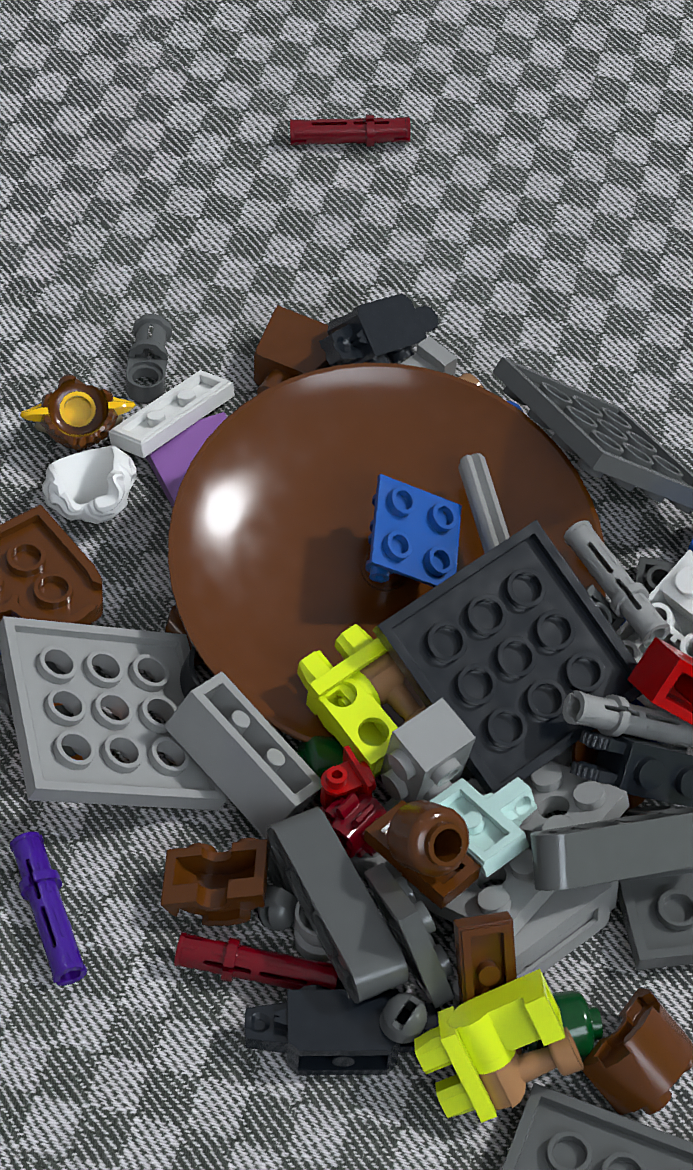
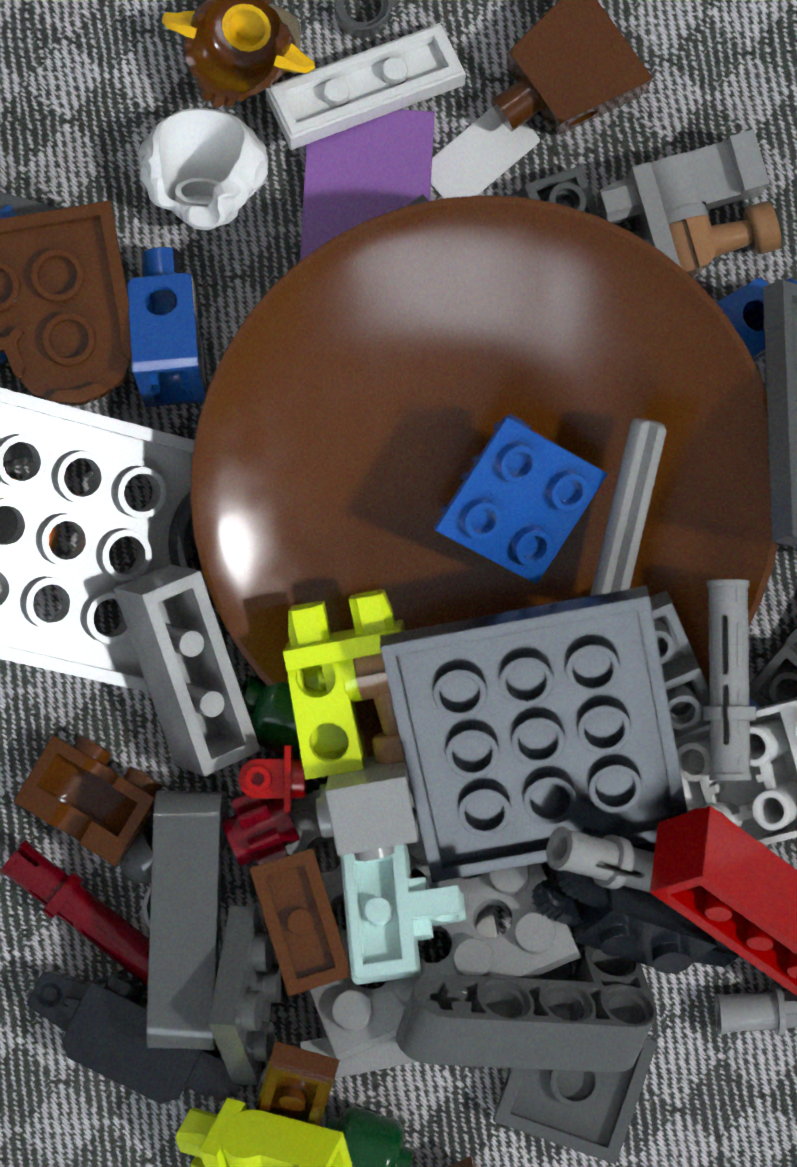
camera: 25 degrees right, 35 degrees up
(125, 569) = (166, 332): none -> blue torso
(378, 332) = (682, 99): black hinge -> none
(415, 1023) = (183, 1072): dark grey hinge -> none
(428, 838) = (295, 940): reddish brown head -> none

